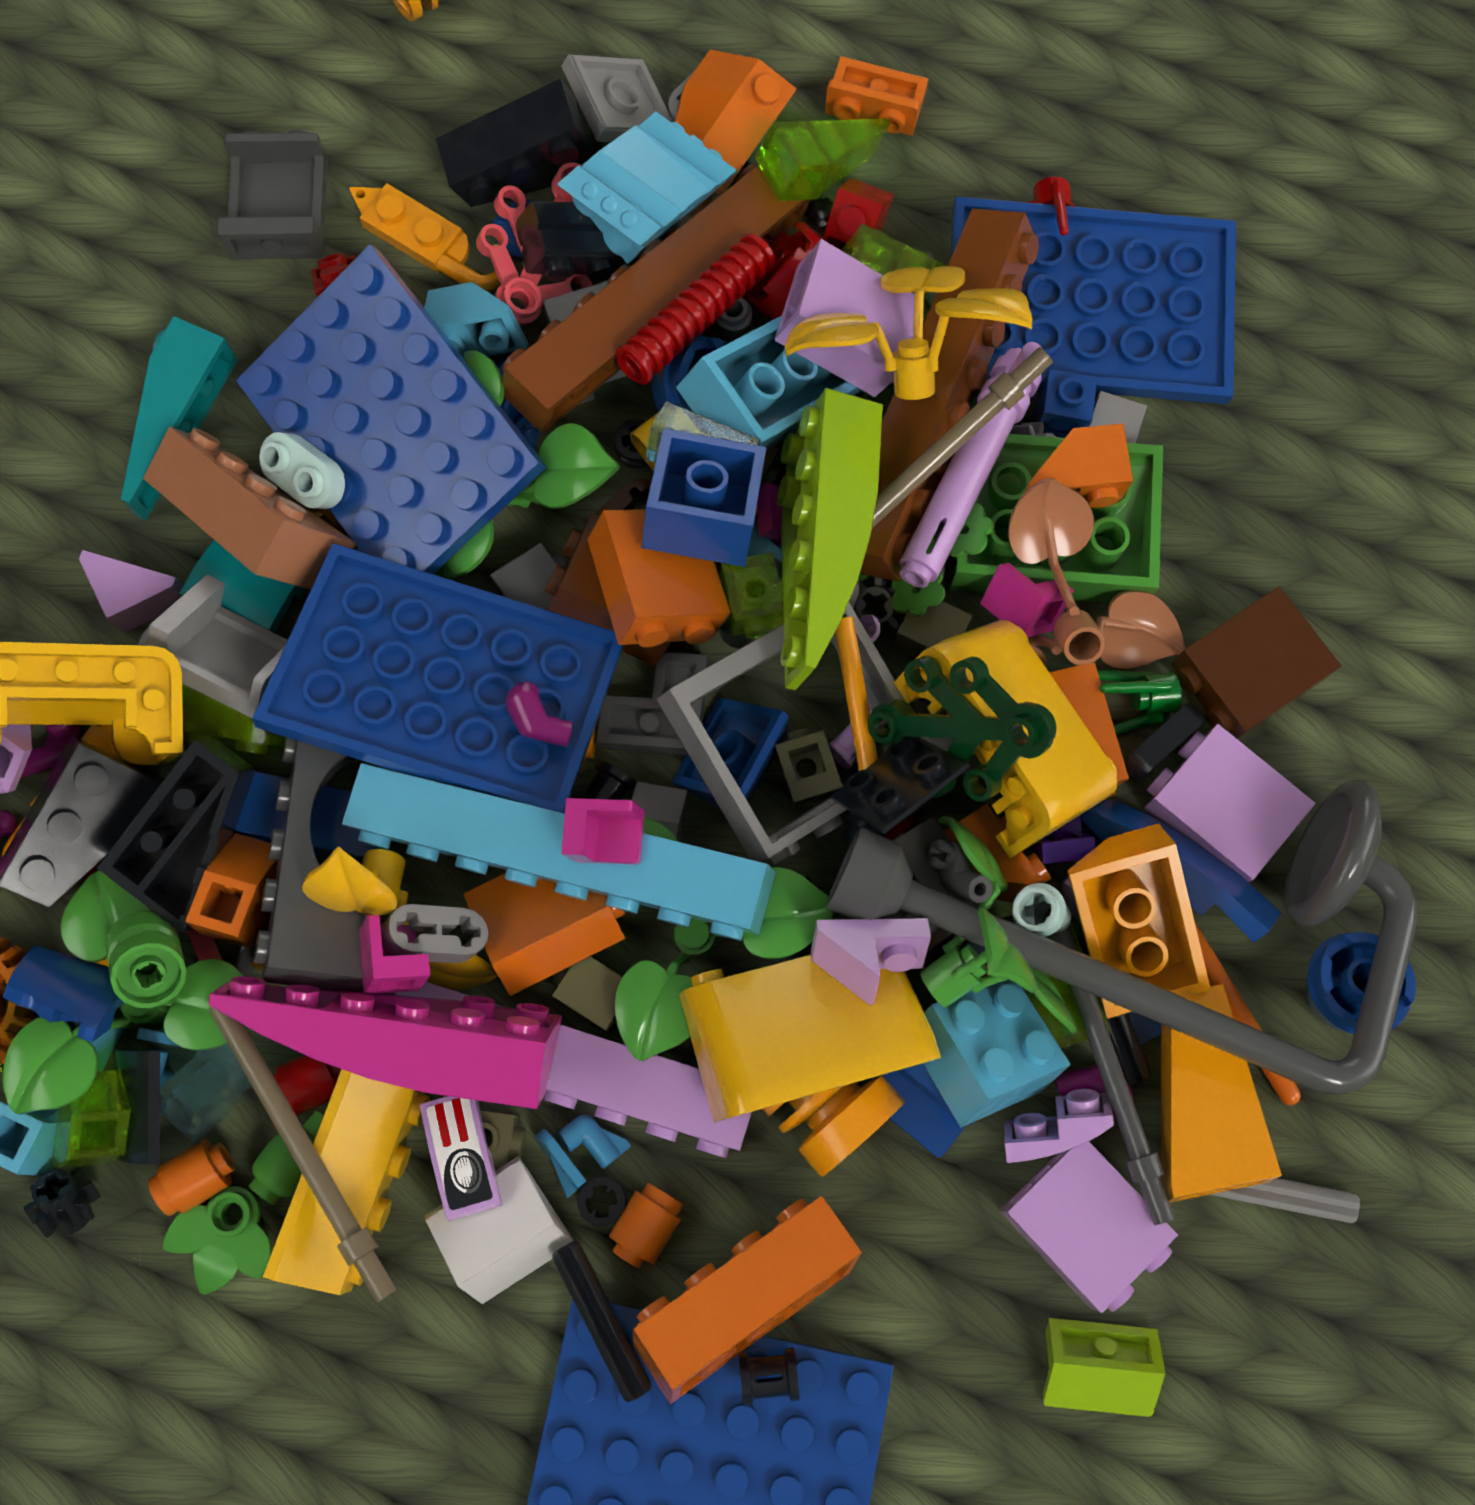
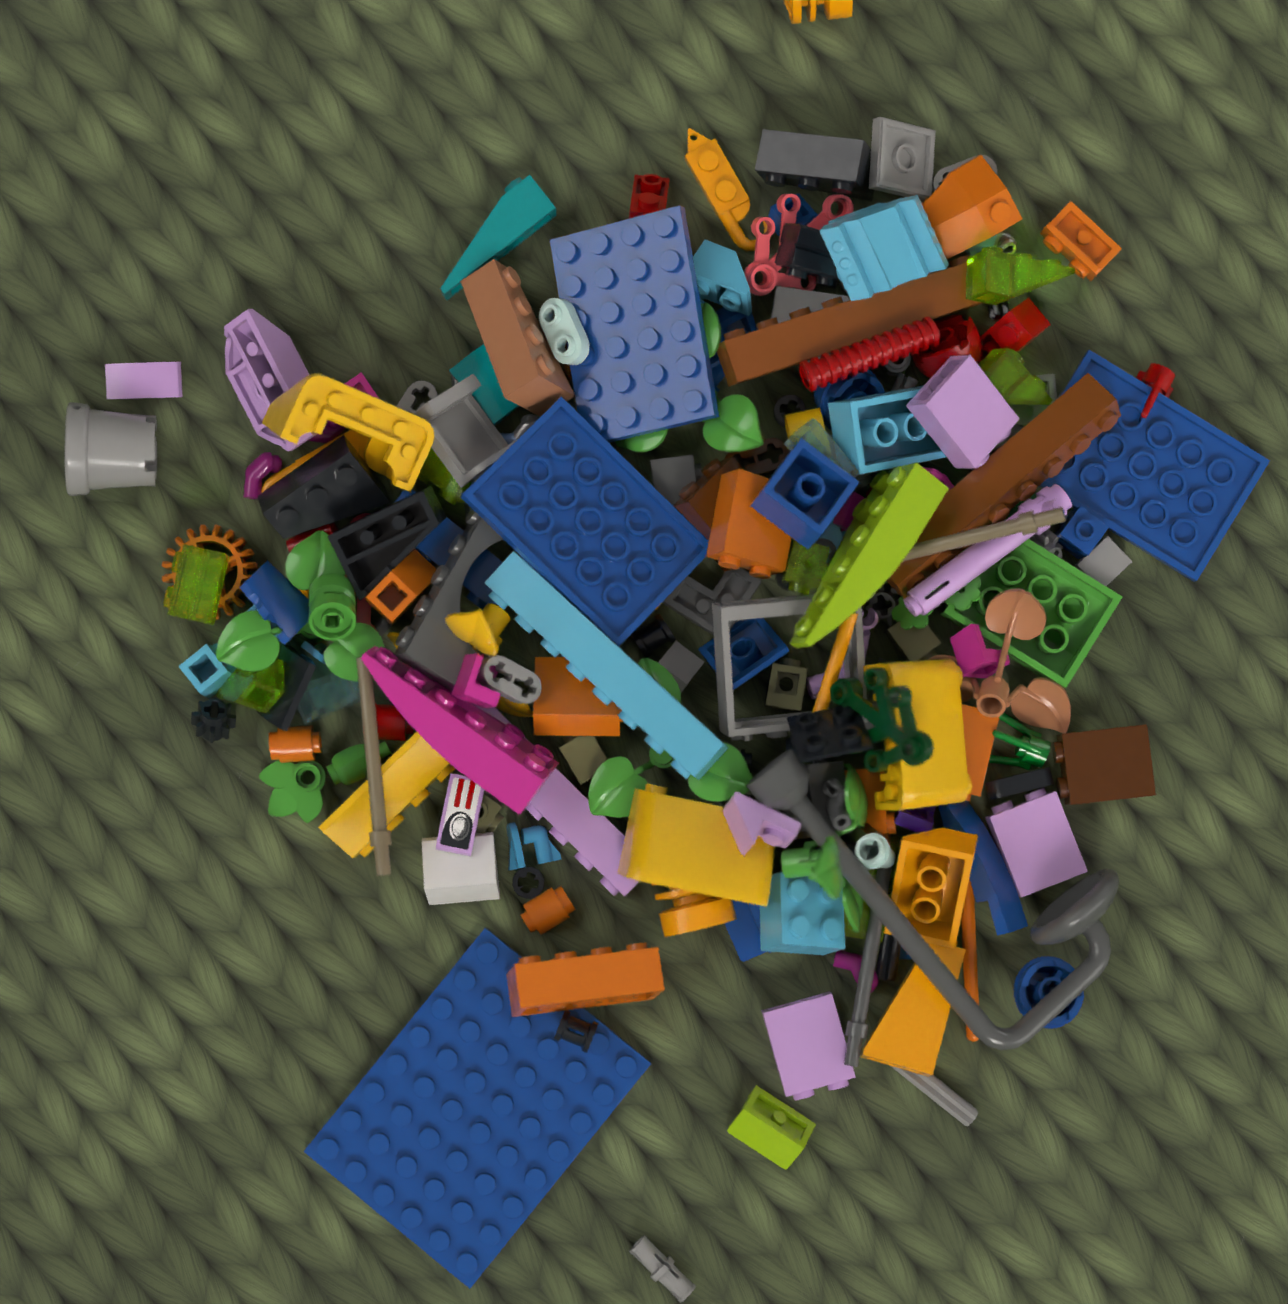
camera: 25 degrees right, 10 degrees up
(129, 592) = (416, 350): lavender slope -> none
(275, 196) = (636, 110): dark grey panel -> none
(531, 717) = (629, 577): magenta arm -> none
(601, 1321) = (495, 950): black axle -> none
(603, 831) = (637, 675): dark pink panel -> none
(914, 361) = (1031, 470): yellow plant -> none
(1079, 1119) = (833, 982): lavender slope -> none
(1091, 463) = (1060, 589): orange slope -> none

